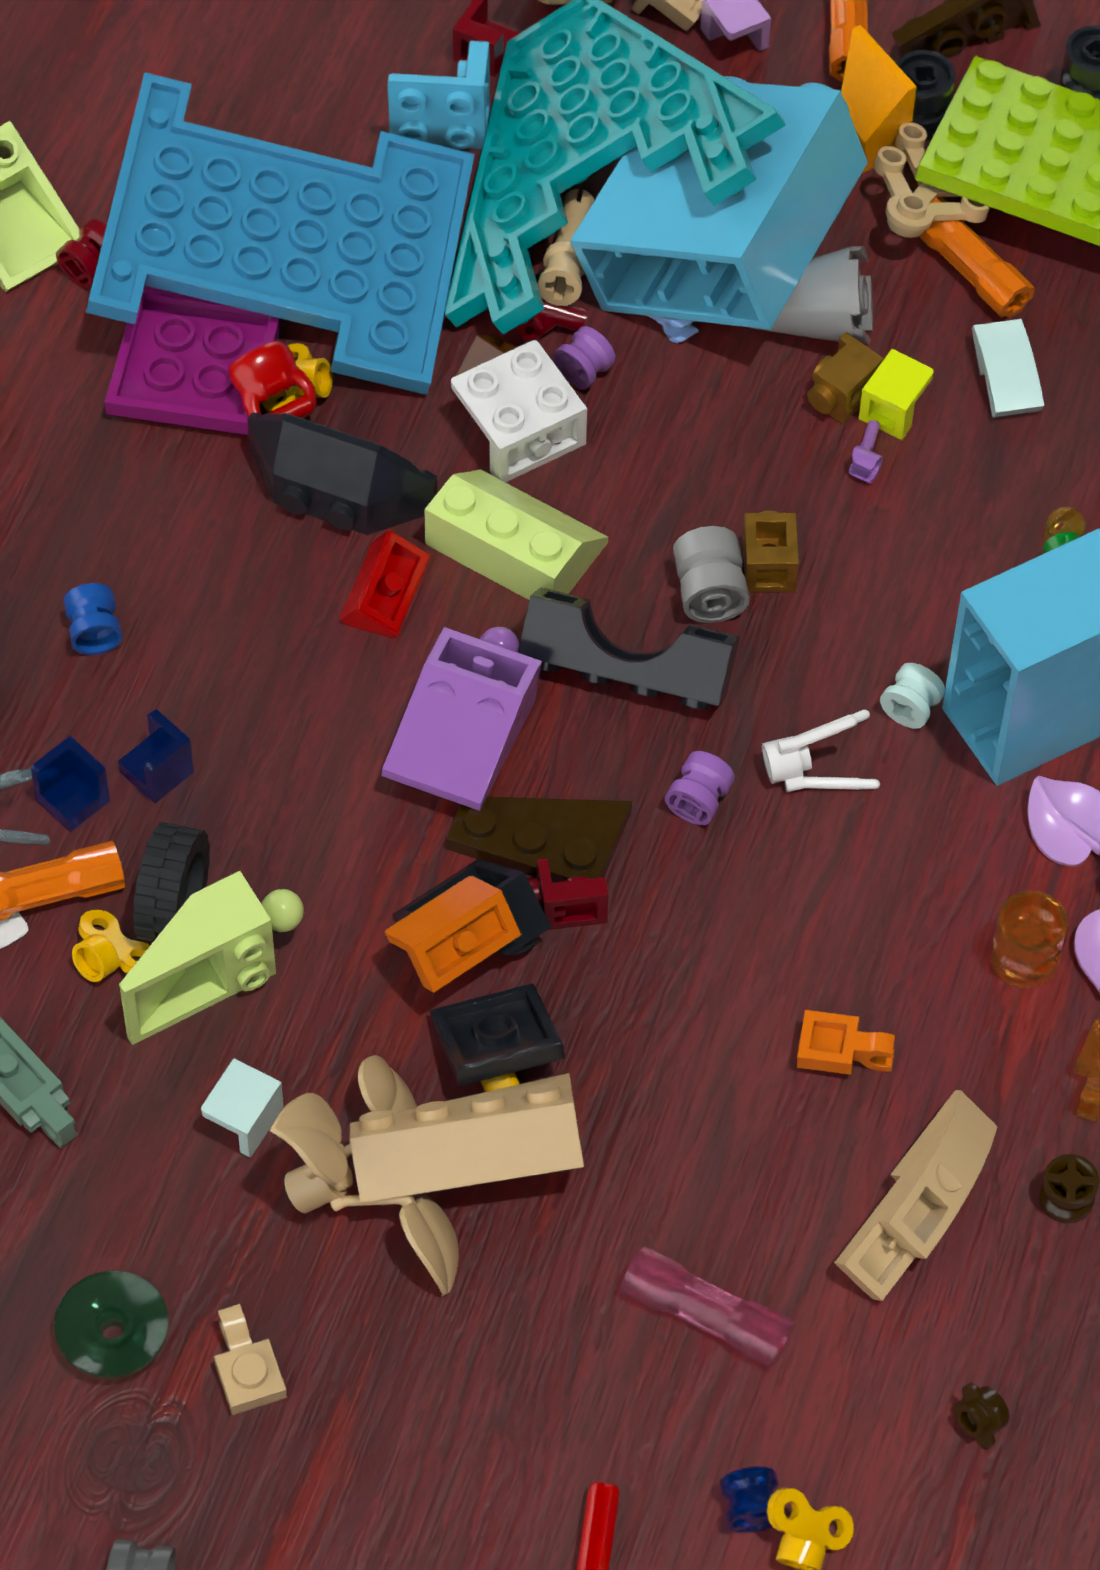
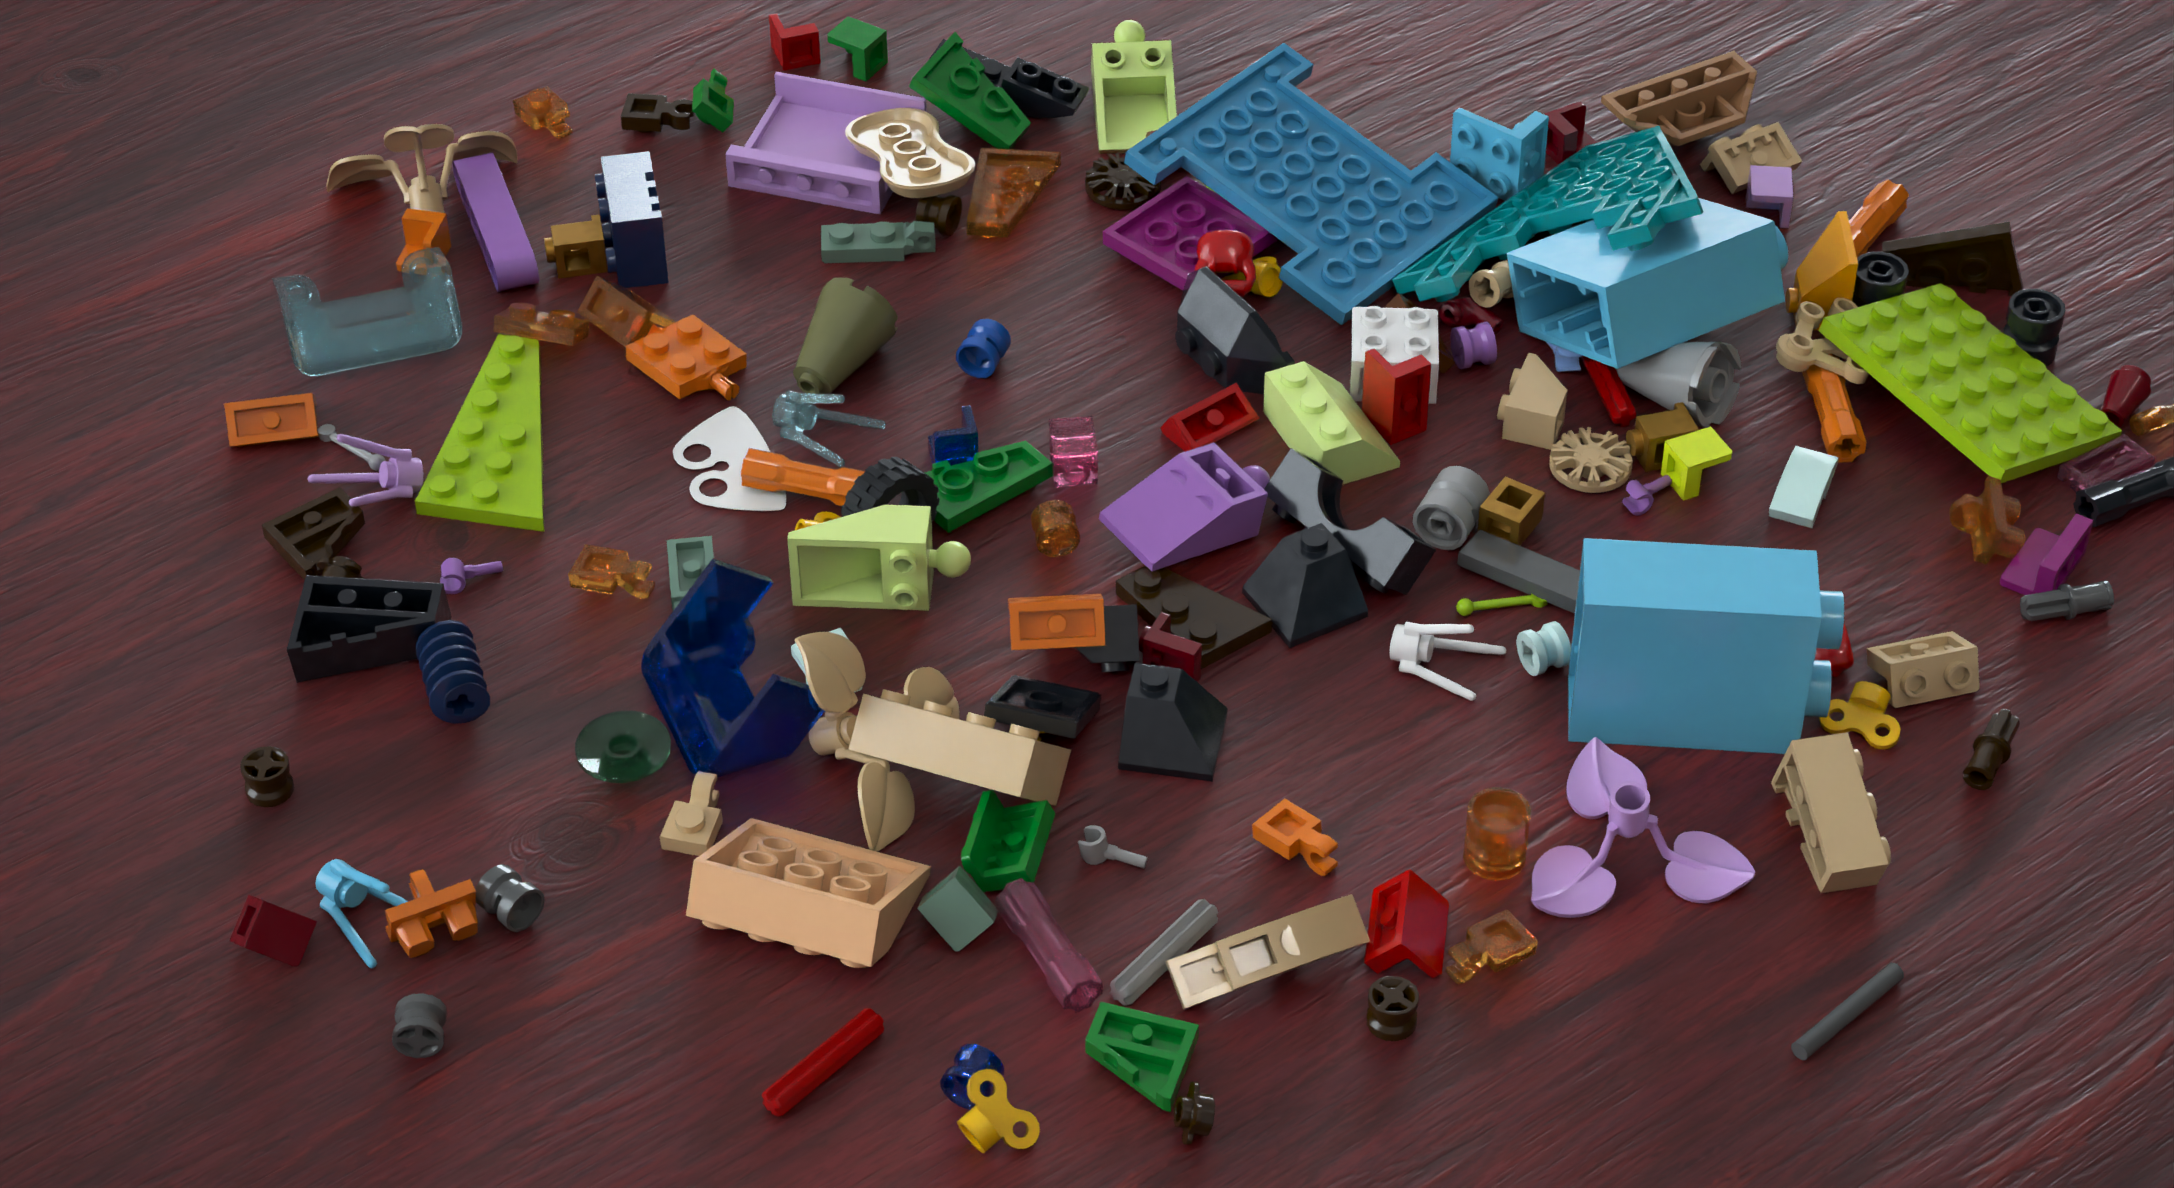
camera: 35 degrees right, 15 degrees down
(62, 322) = (1119, 182): none -> dark brown wheel
(70, 783) = (880, 429): clear blue panel -> none
(143, 1213) = (699, 681): none -> clear blue windscreen
(216, 788) = (986, 481): none -> green wing
(286, 702) = (1073, 451): none -> clear pink brick
(340, 808) = (1055, 528): none -> clear orange wheel
(431, 1382) = (805, 892): none -> light nougat slope
(565, 473) = (1396, 395): none -> red panel
(583, 1215) = (1006, 841): none -> green bracket
(591, 1318) = (958, 909): none -> sand green panel
(629, 985) = (1170, 725): none -> black slope
(636, 744) = (1307, 586): none -> black slope
(674, 1162) = (1097, 849): none -> light grey hand
(696, 400) = (1535, 405): none -> tan slope
(697, 792) = (1328, 632): medium lavender wheel -> none
(754, 348) = (1611, 391): none -> red axle
(788, 440) = (1591, 460): none -> tan wheel
(814, 1248) = (1170, 944): none -> light grey axle
(827, 608) = (1521, 569): none -> dark grey tile
(853, 633) = (1466, 606): none -> lime hinge
(882, 1372) = (1143, 1050): none -> green wing
(1012, 1088) = (1405, 923): none -> red panel

